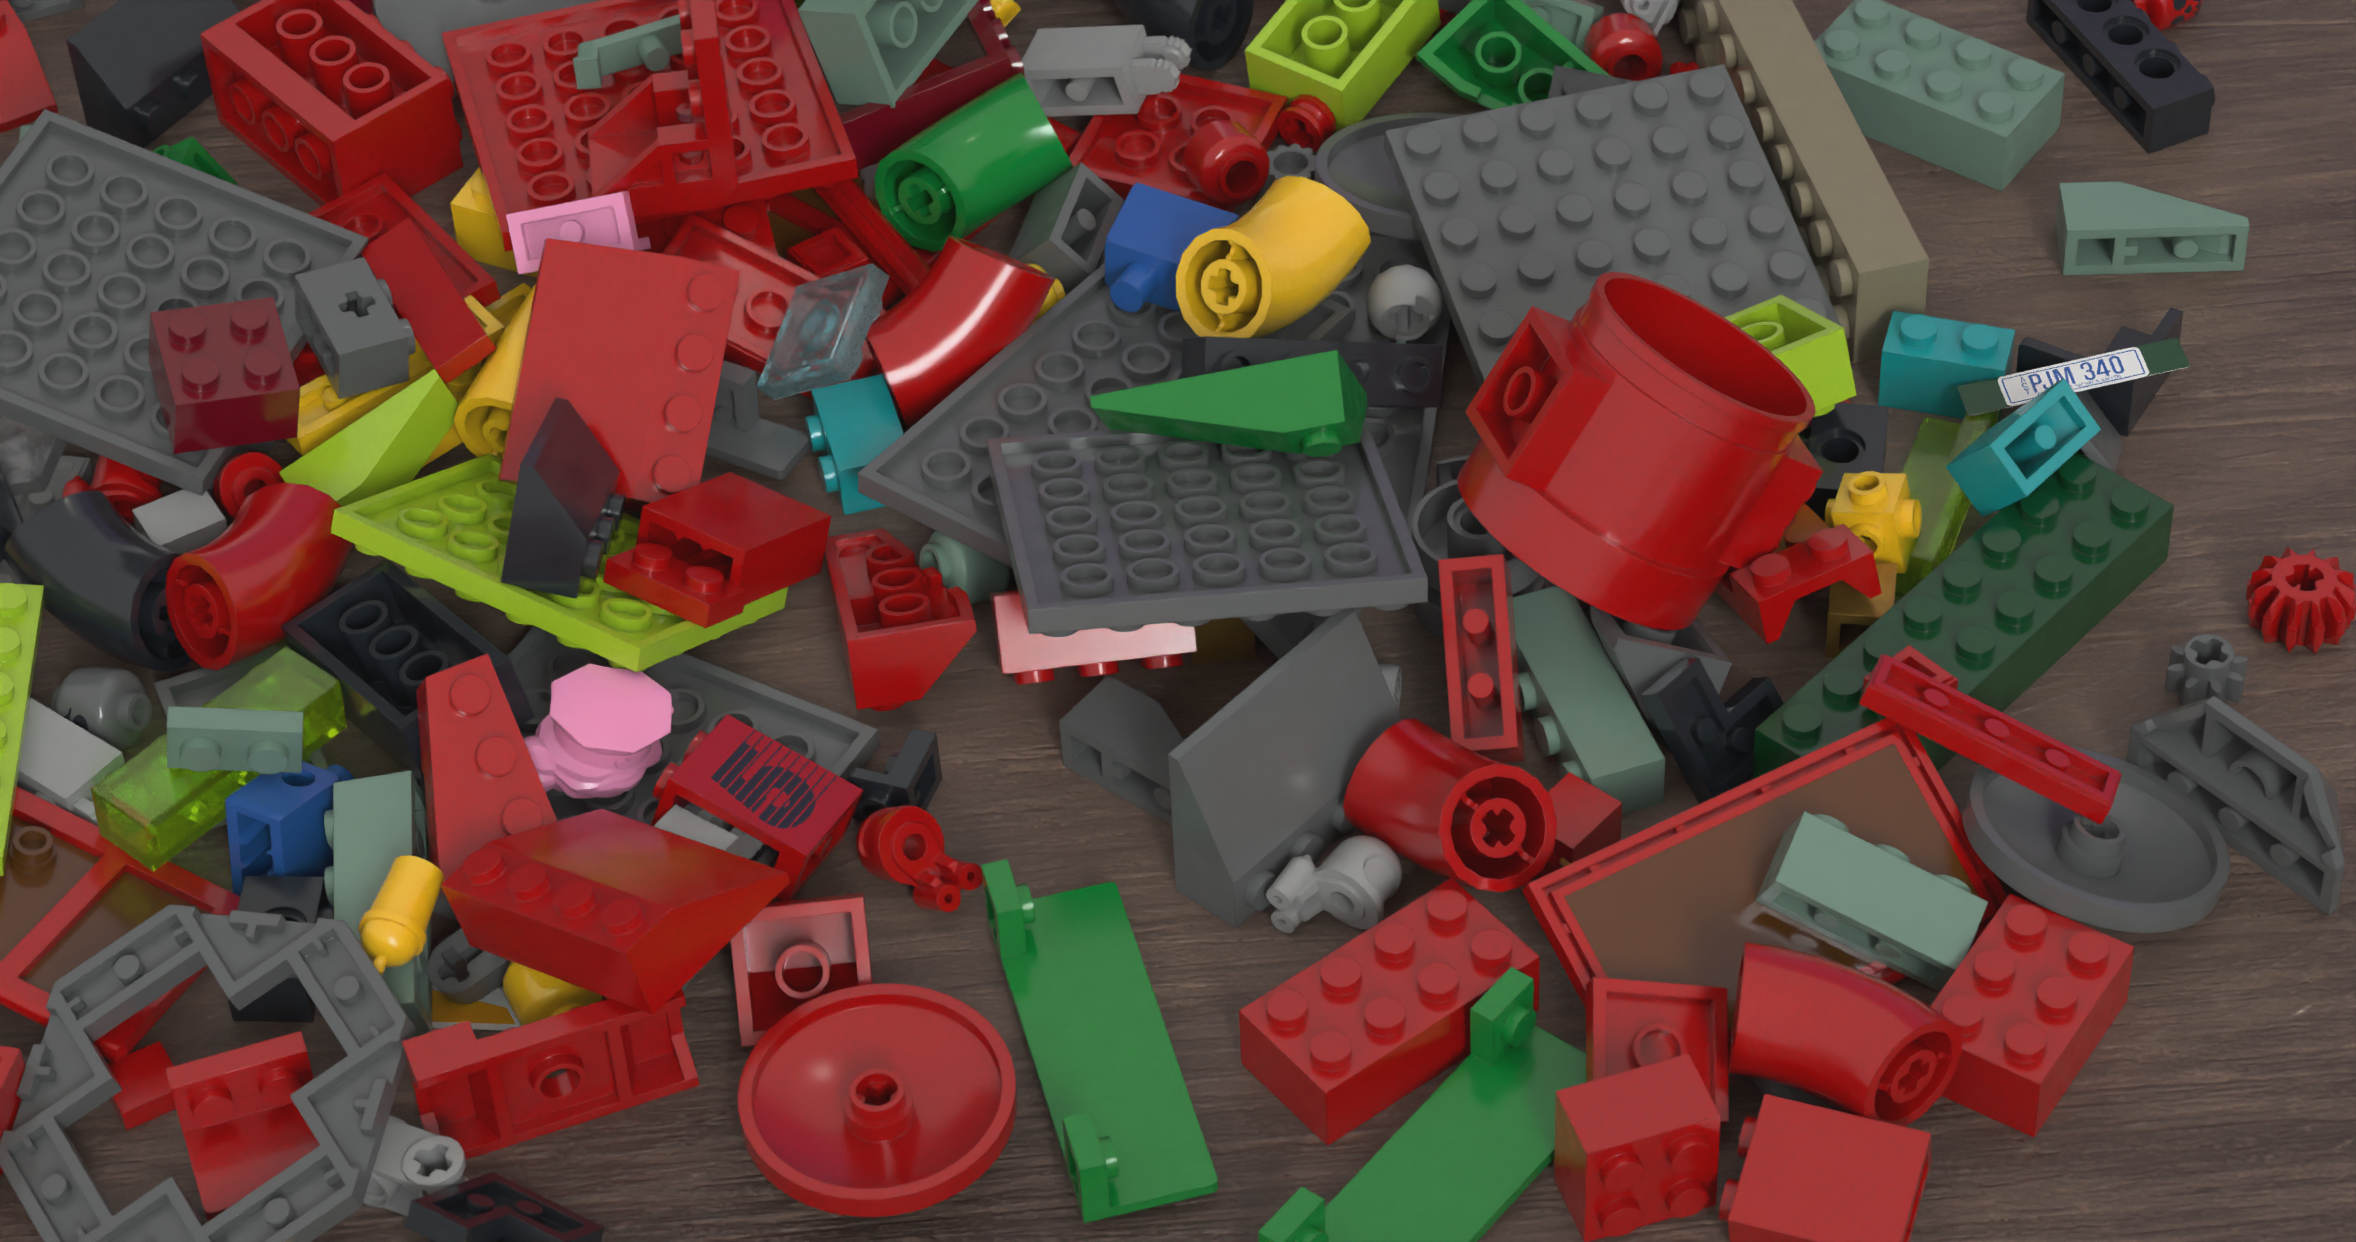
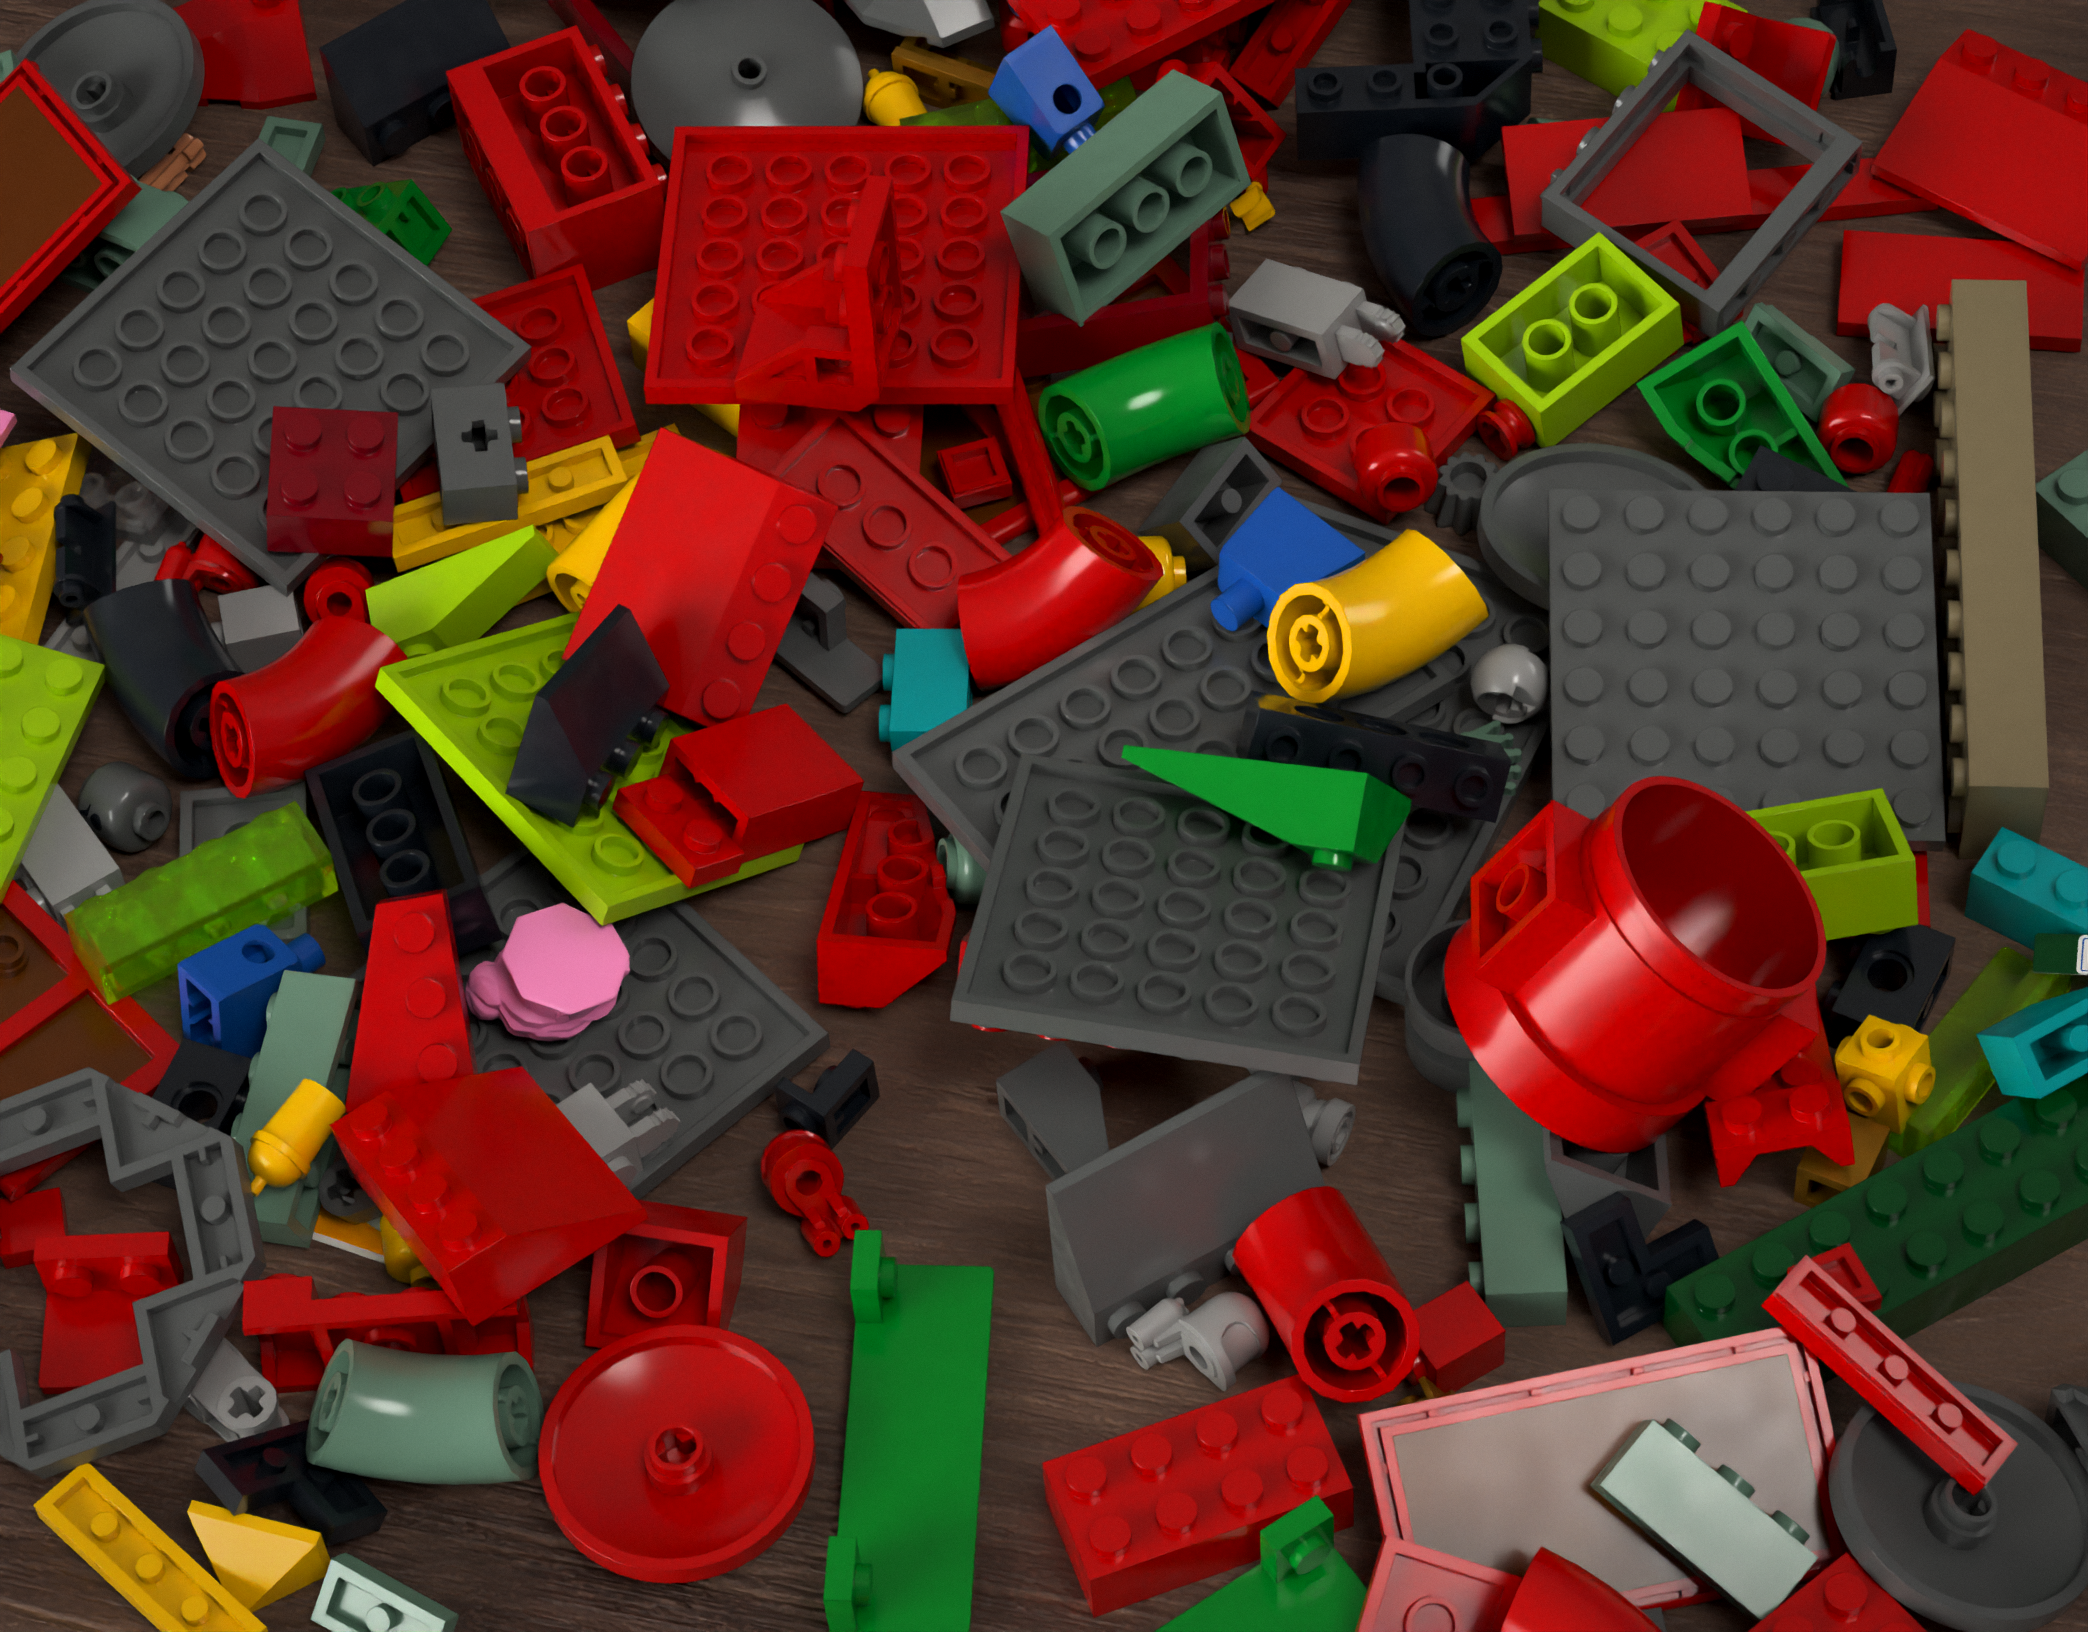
camera: 20 degrees right, 10 degrees up
(234, 740) = (221, 909): sand green plate -> none
(428, 300) = (559, 437): red tile -> none
(594, 220) = (712, 408): bright pink panel -> none
(612, 1128) = (426, 1416): none -> sand green brick
(646, 44) = (833, 200): sand green piece -> none
(763, 793) = (681, 1091): red panel -> none
(823, 332) = (920, 575): clear light blue plate -> none
(1481, 656) = (1421, 1134): red brick -> none

